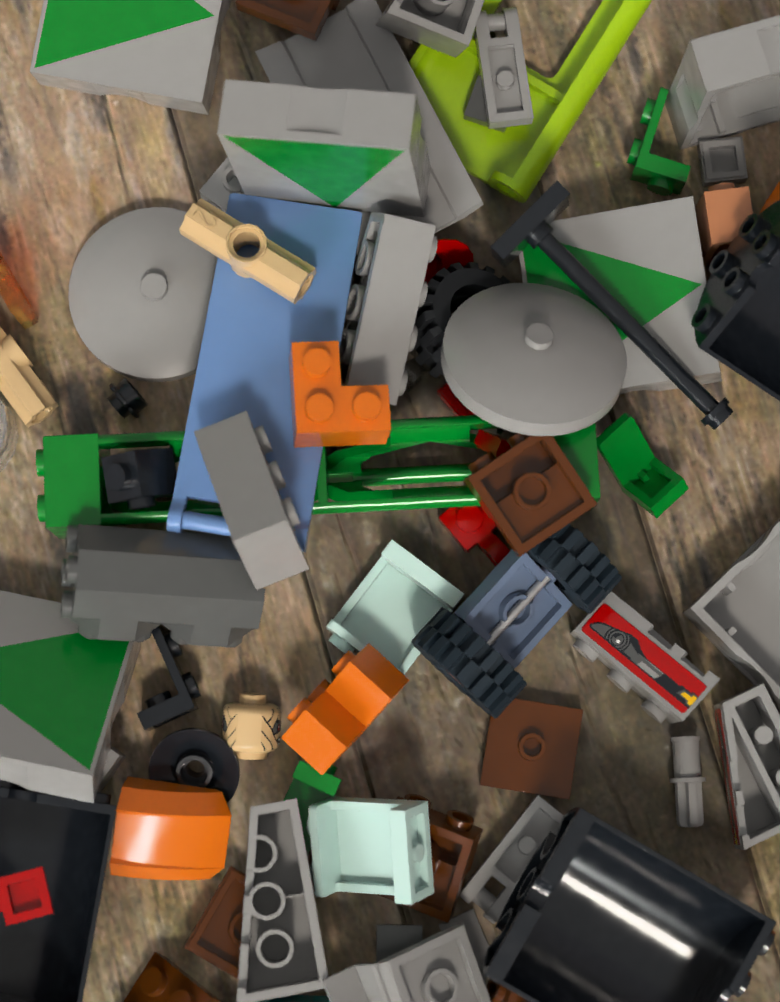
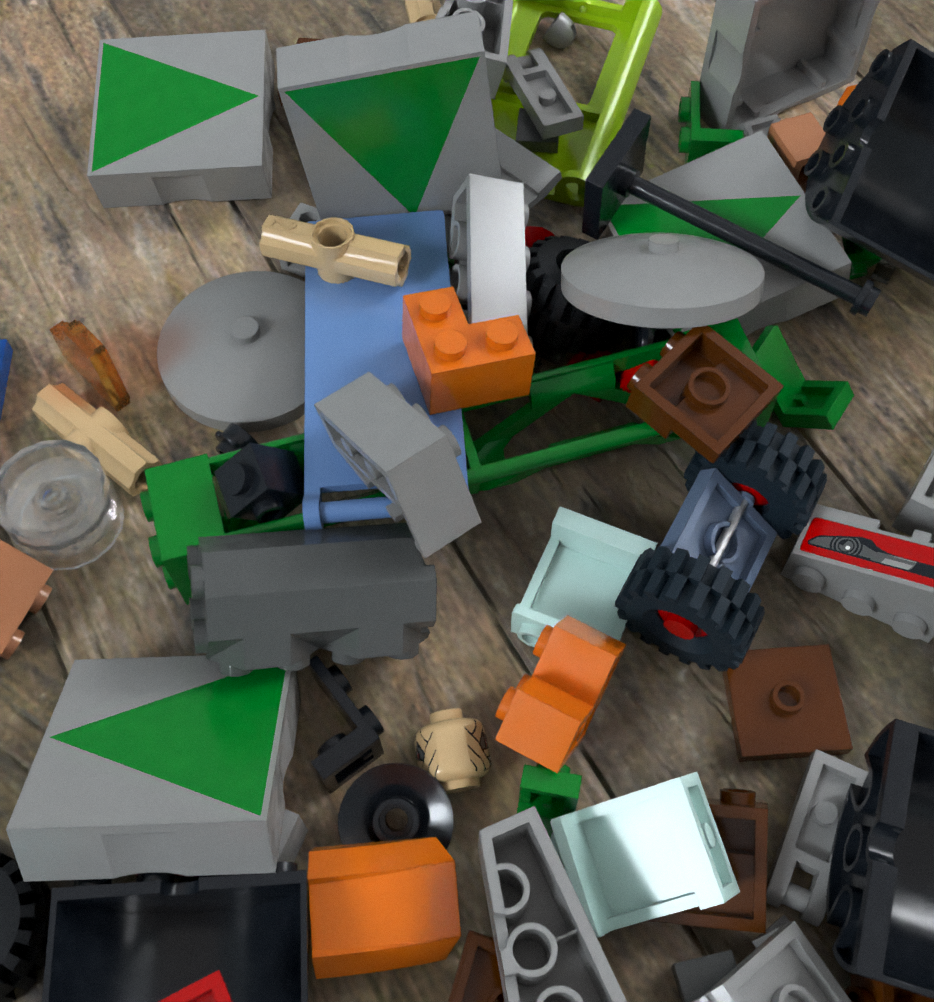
camera: 10 degrees left, 20 degrees down
(474, 528) = (641, 487): red plate -> none

